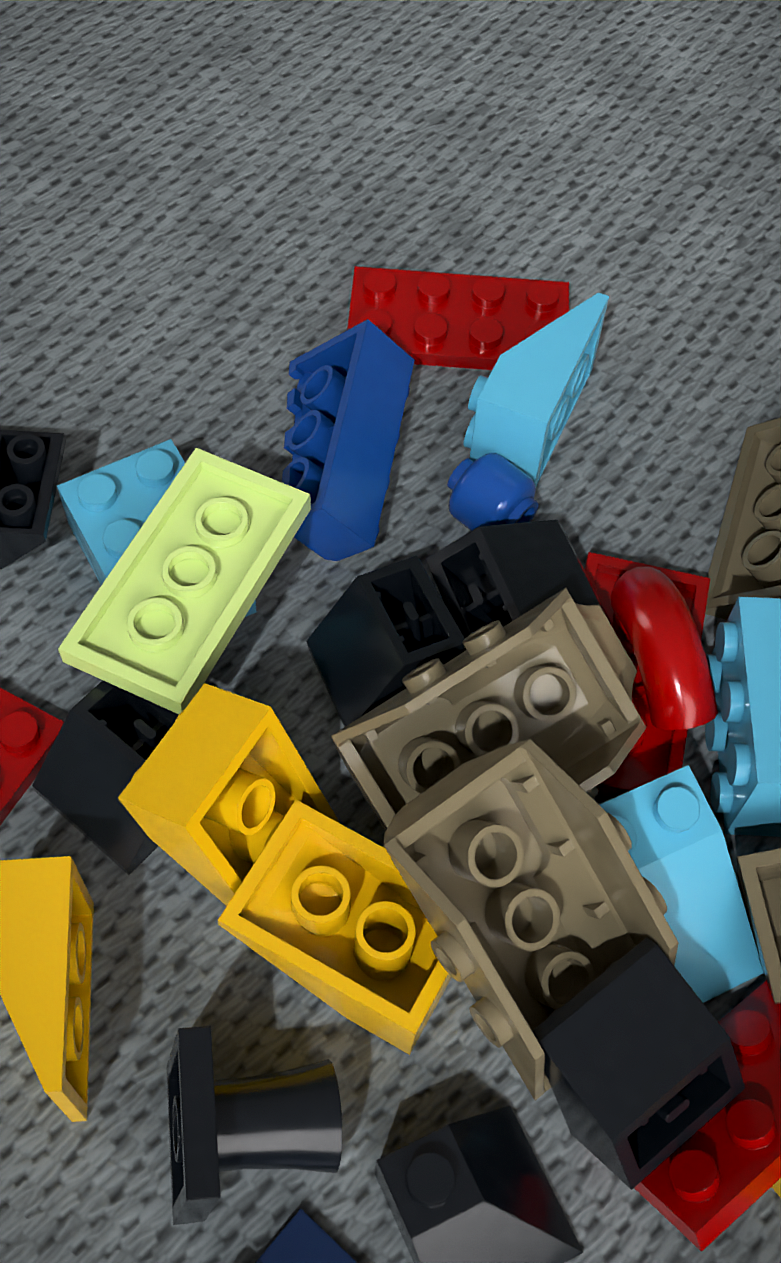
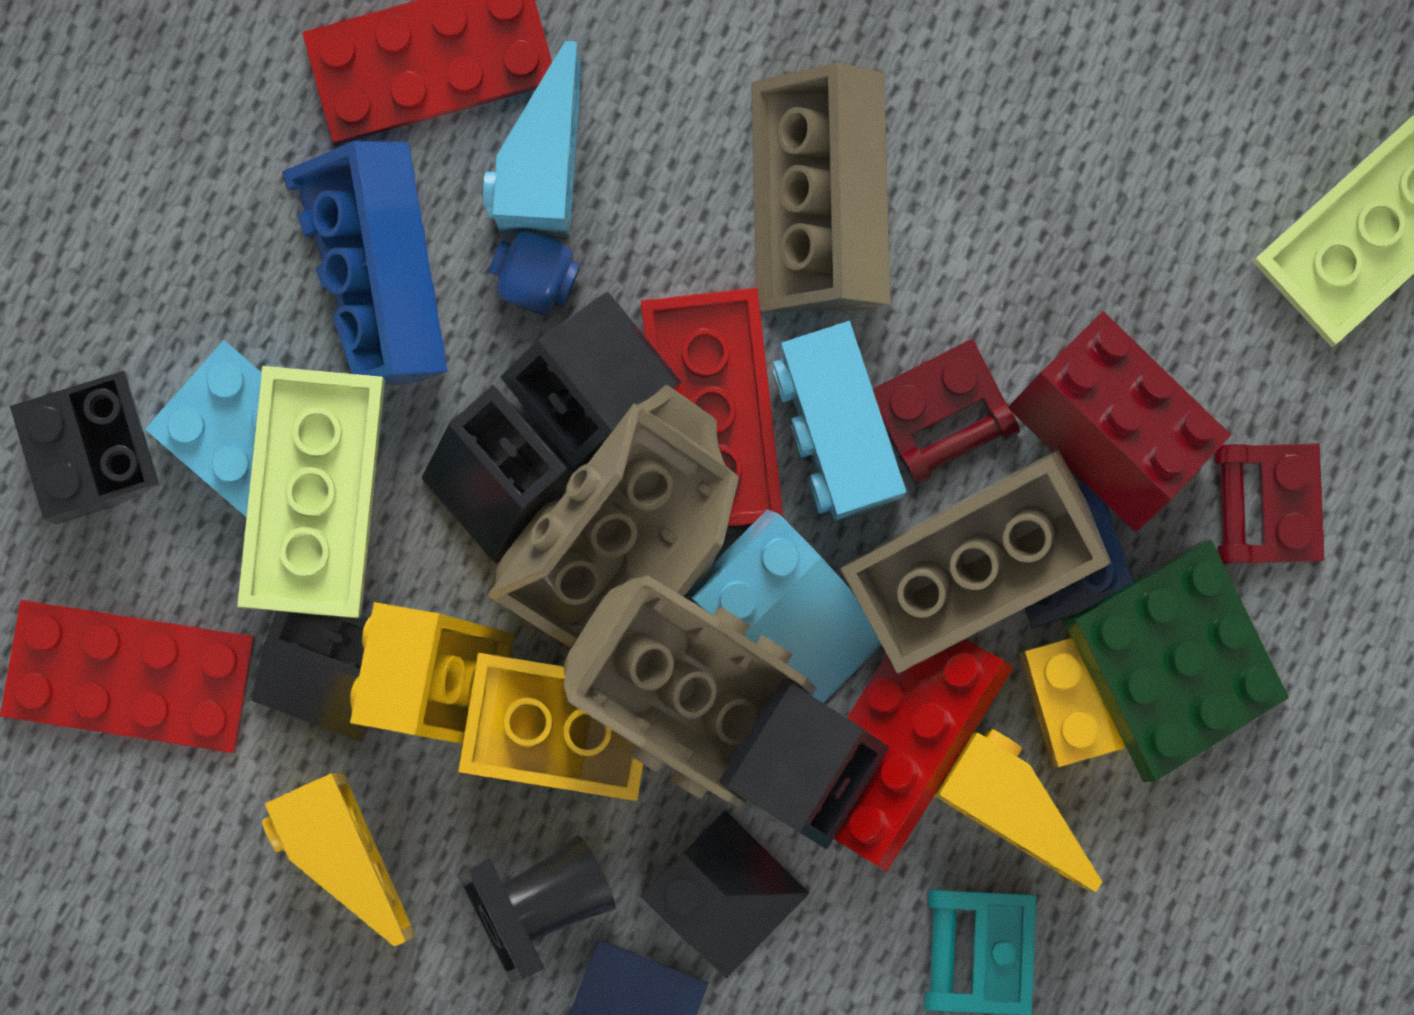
camera: 15 degrees left, 25 degrees up
(666, 649) = (733, 394): red cylinder -> none

